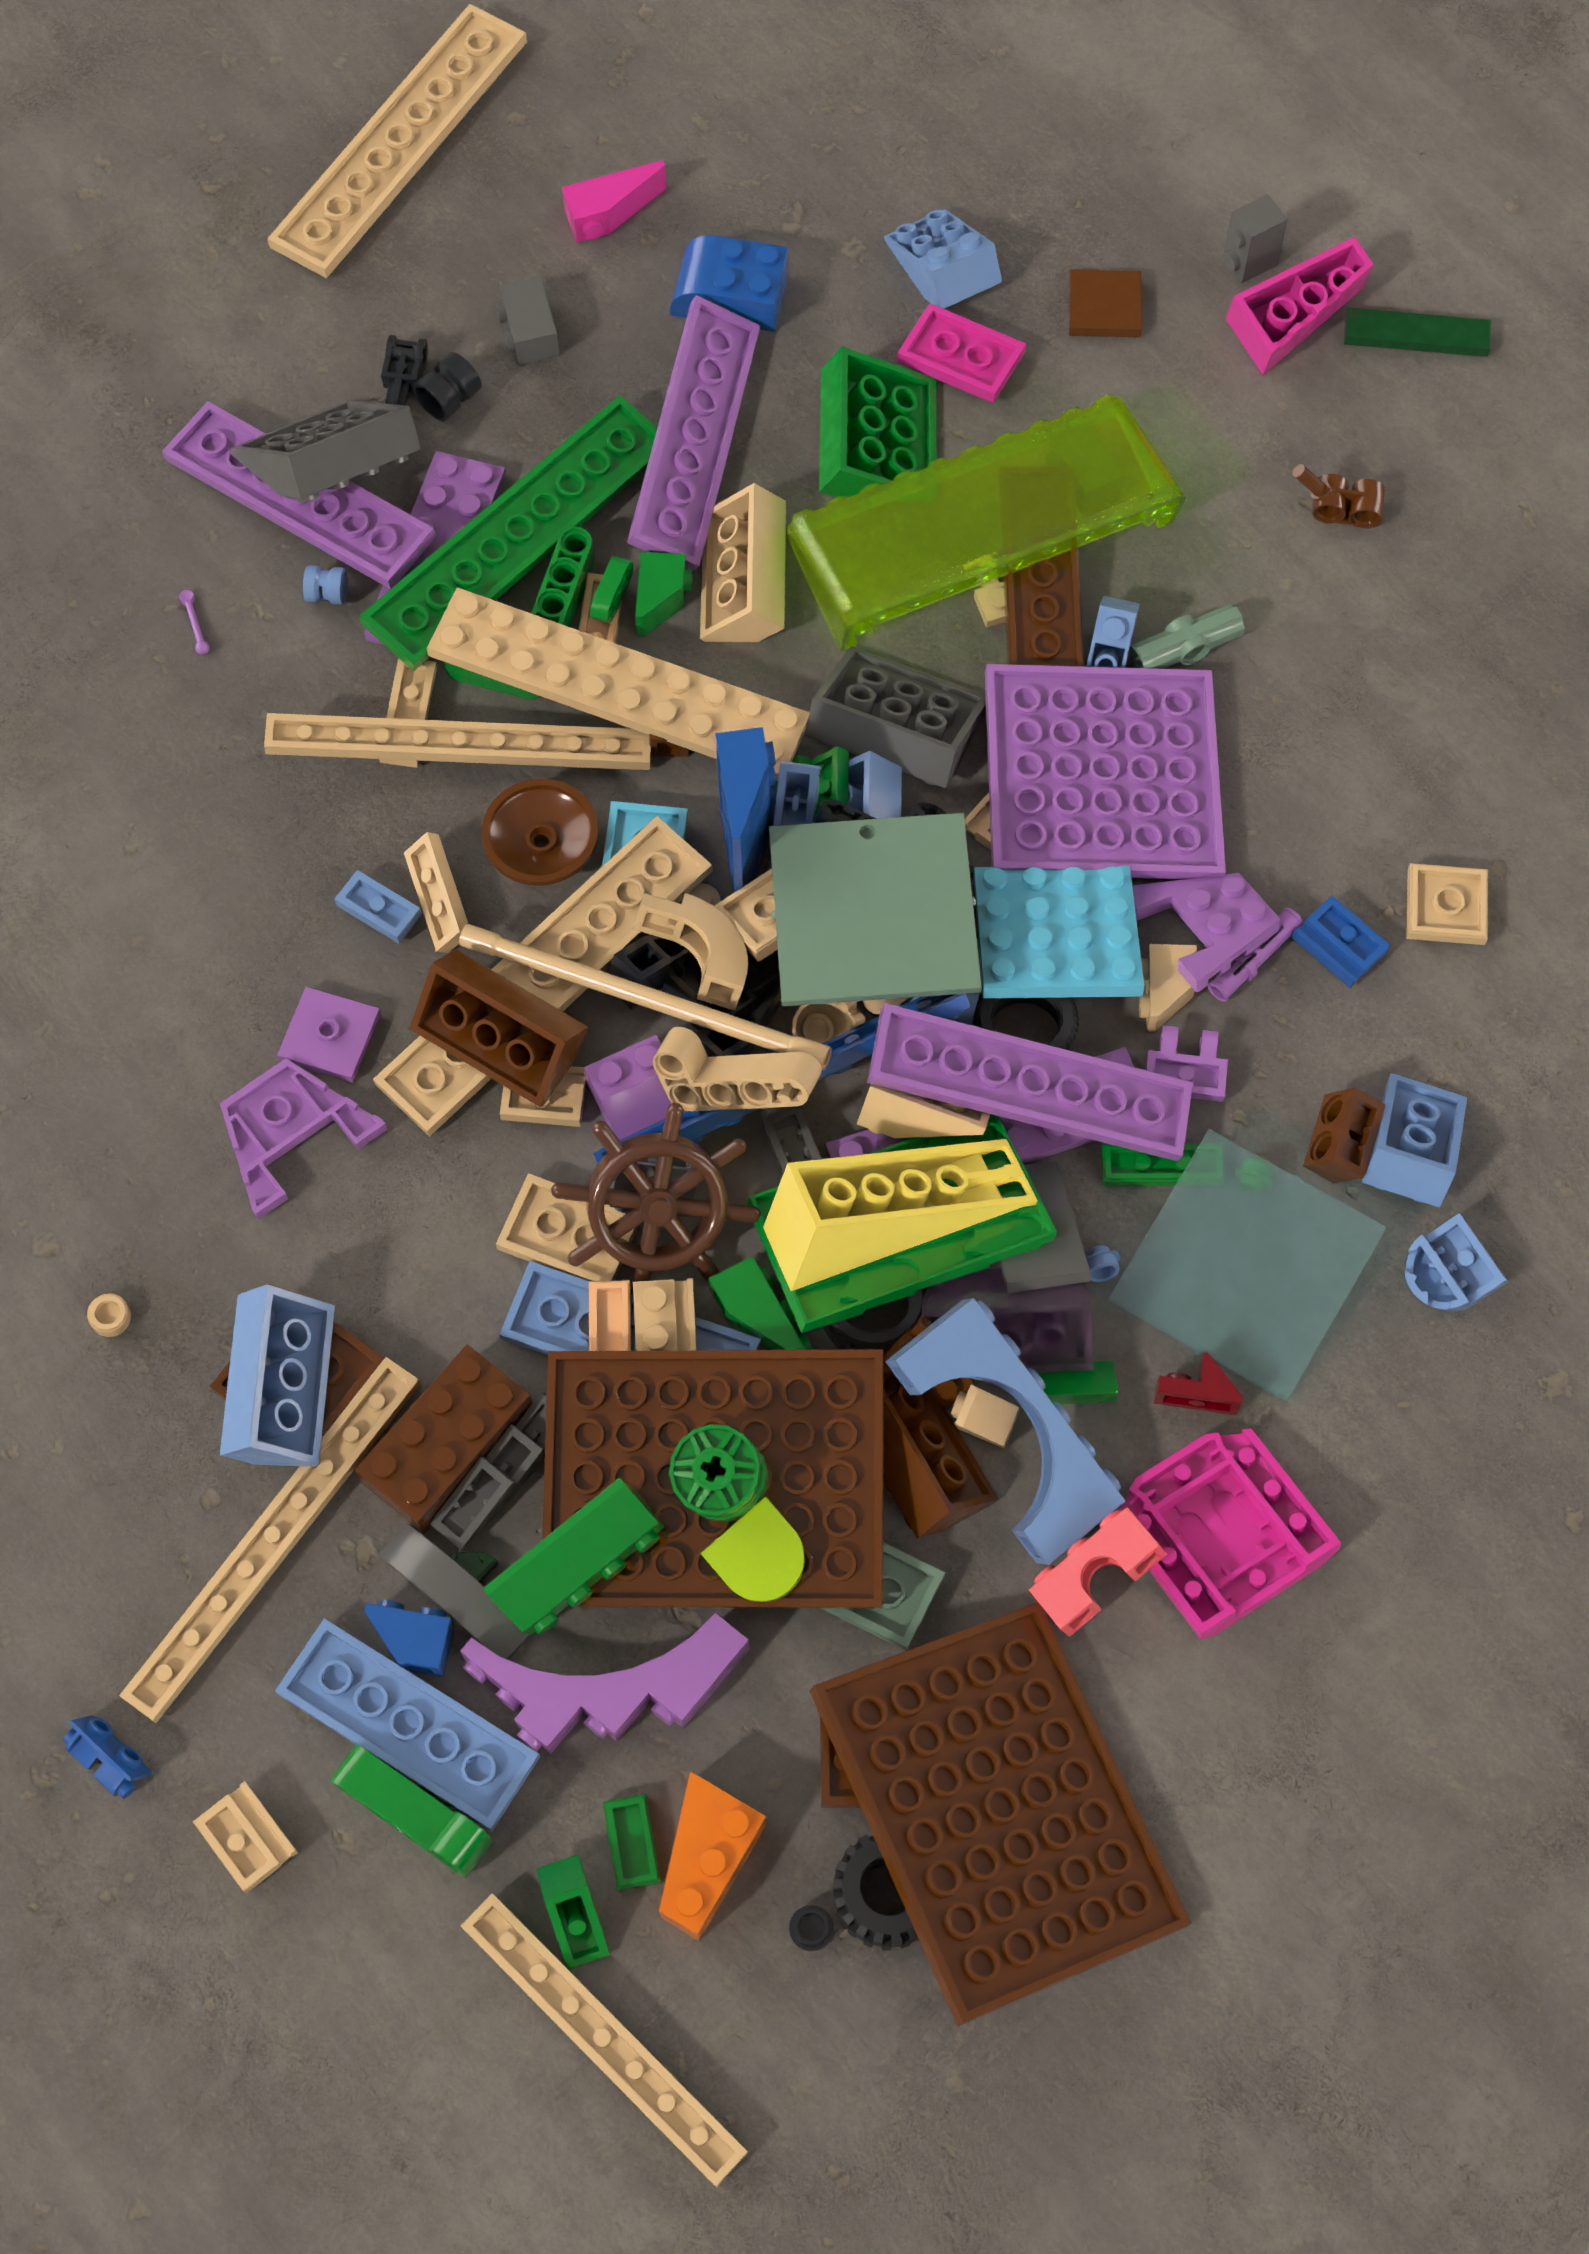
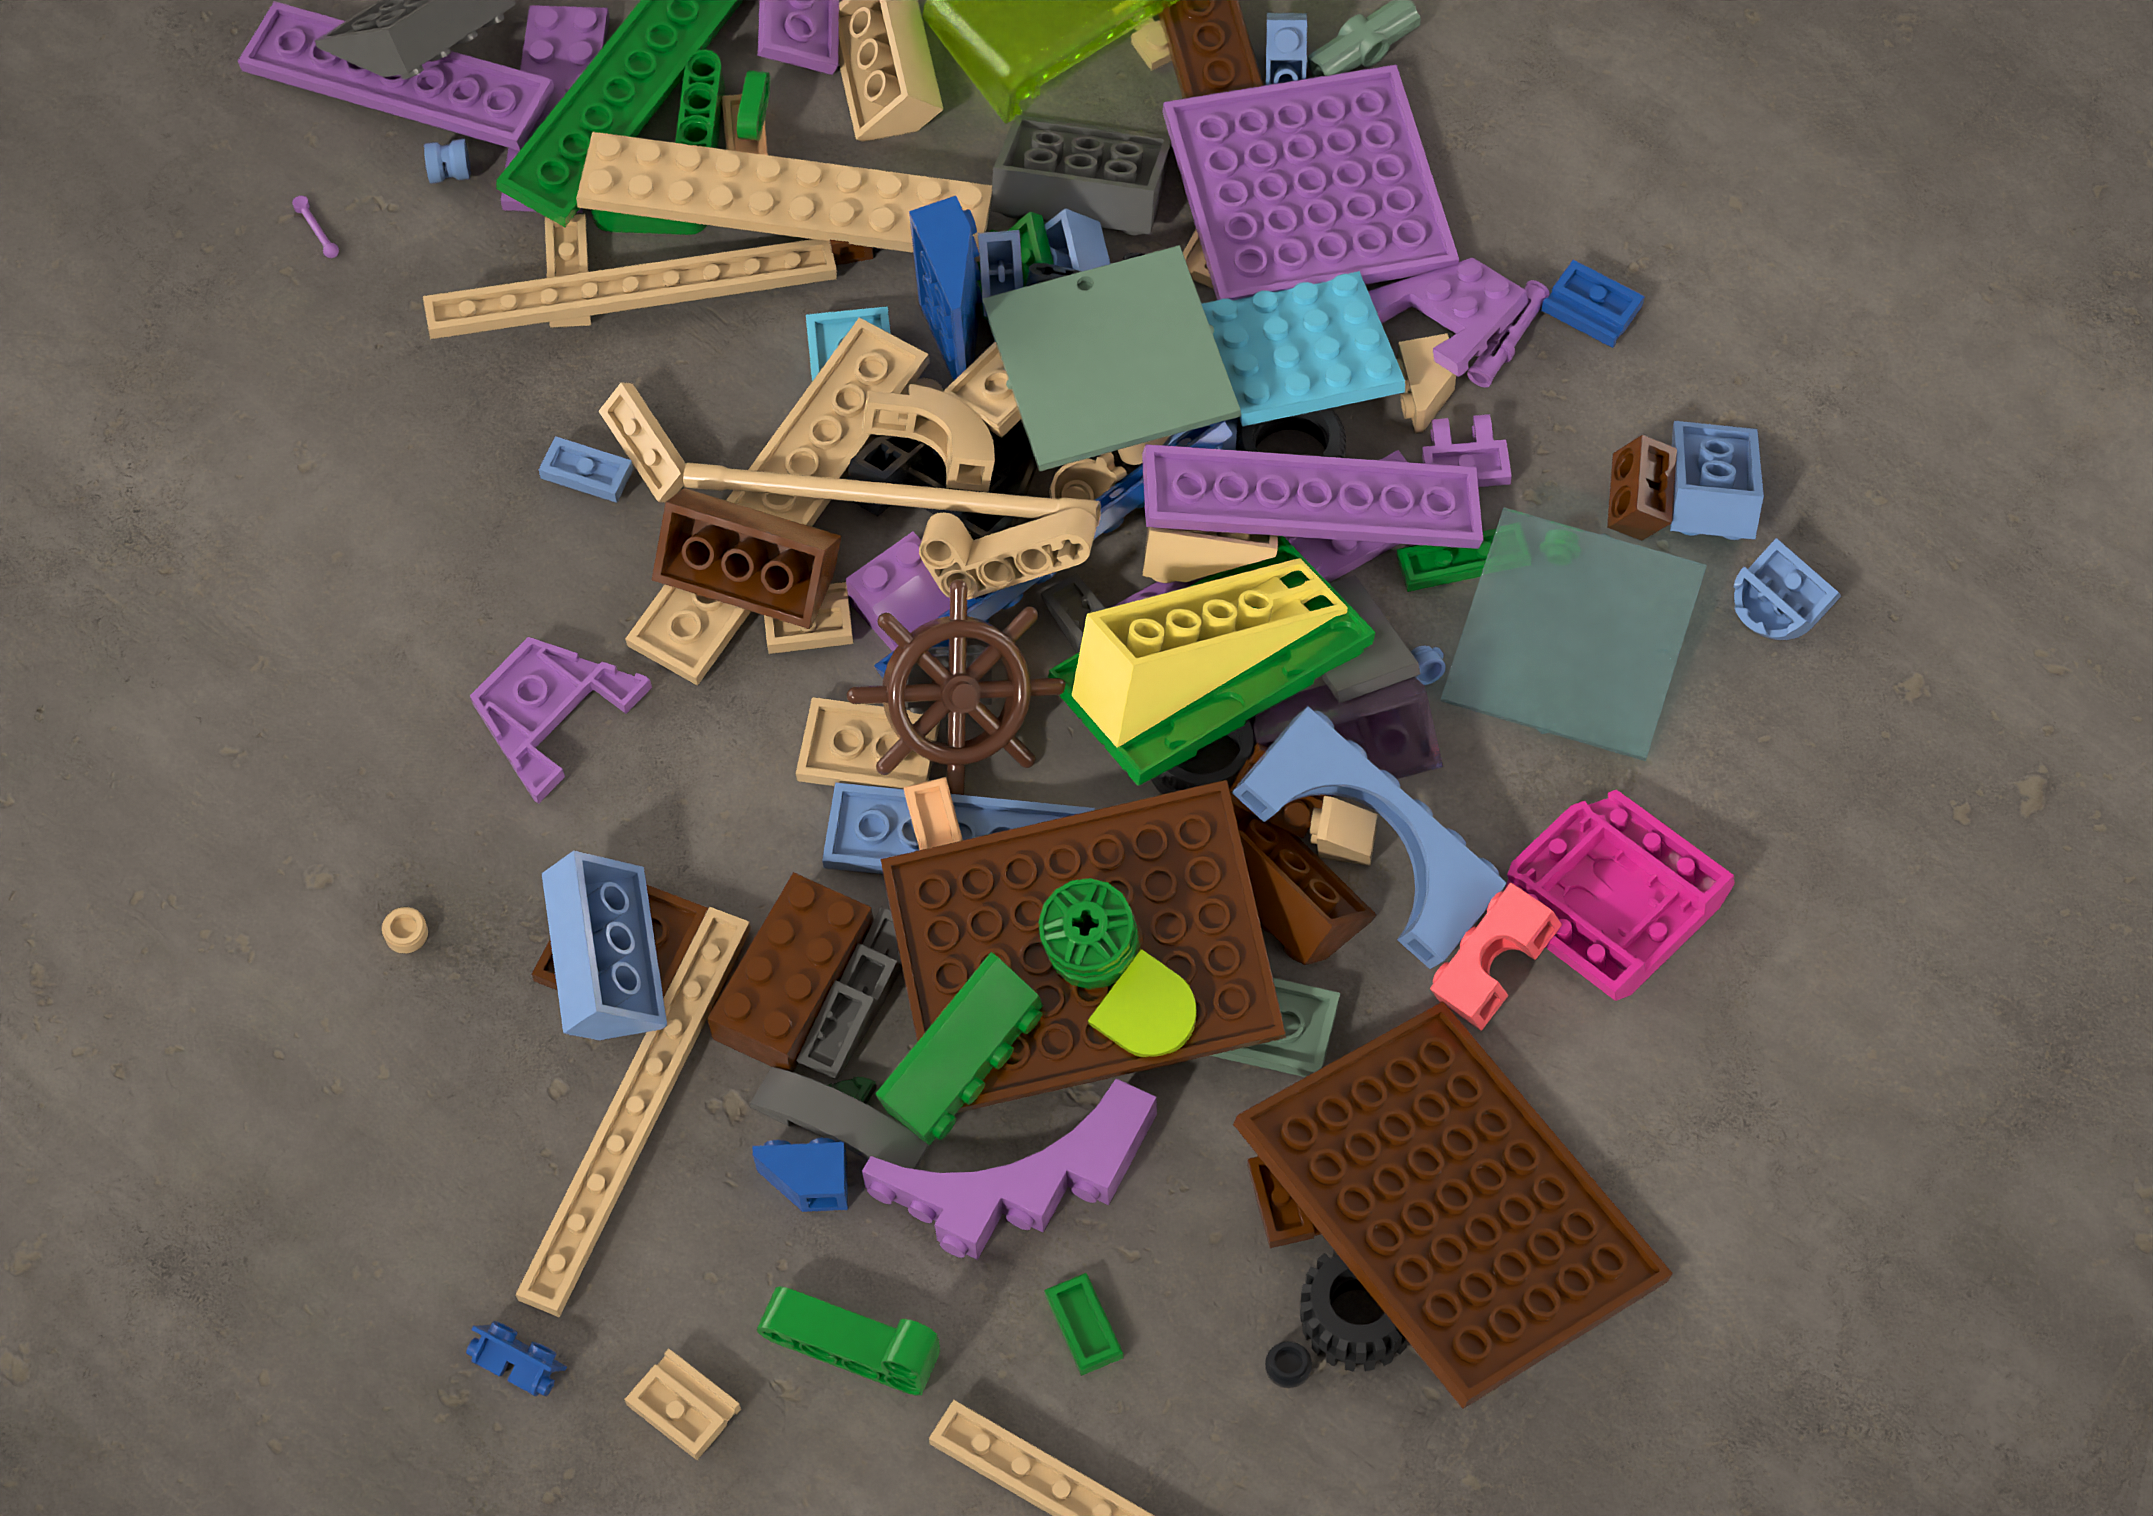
camera: 10 degrees left, 5 degrees down
(329, 1034) = (566, 606): medium lavender plate -> none
(408, 1724) = (821, 1254): medium blue plate -> none
(537, 813) = (735, 342): reddish brown dish -> none
(572, 1911) = (1041, 1399): green slope -> none
(660, 588) = (804, 95): green slope -> none
(664, 1315) = (989, 801): tan plate -> none
(707, 1854) = (1166, 1313): orange wedge -> none
(752, 1308) = (1074, 776): green slope -> none
(1082, 1386) = (1440, 785): green slope -> none
(1210, 1393) = (1565, 766): dark red slope -> none
(1447, 904) = (1692, 245): tan plate -> none

